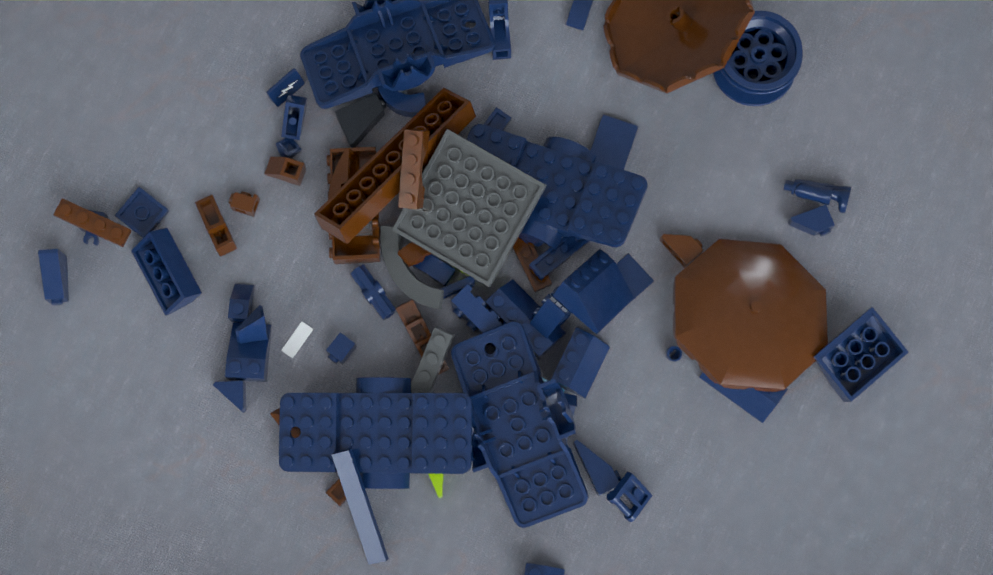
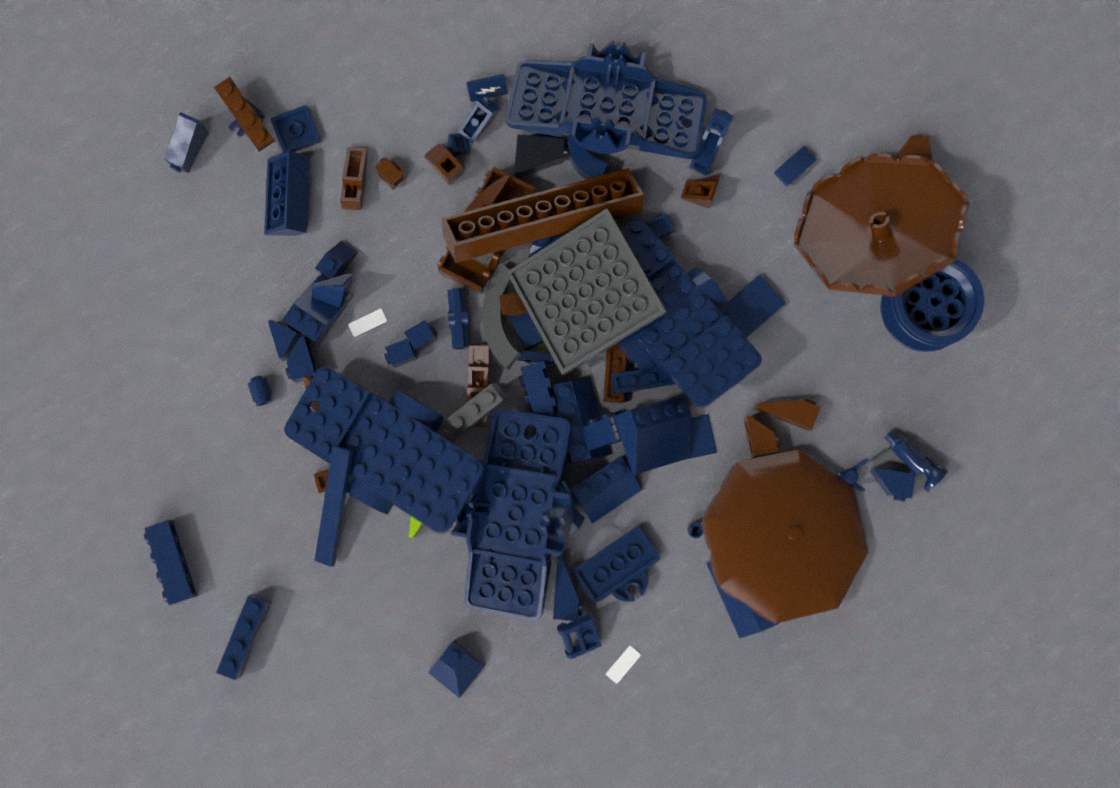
camera: 25 degrees right, 5 degrees up
(239, 448) = (260, 390): none -> dark blue brick
(260, 404) = (300, 361): none -> dark blue slope
(350, 323) = (421, 335): none -> dark blue brick
(411, 186) = (543, 244): reddish brown arch -> none
(514, 73) = (701, 190): none -> reddish brown slope
(627, 422) = (618, 567): none -> dark blue plate
(679, 501) = (623, 664): none -> white sticker
(700, 210) = (796, 412): none -> reddish brown slope
(774, 235) = (851, 476): none -> dark blue plant
(860, 355) = (864, 631): dark blue slope -> none

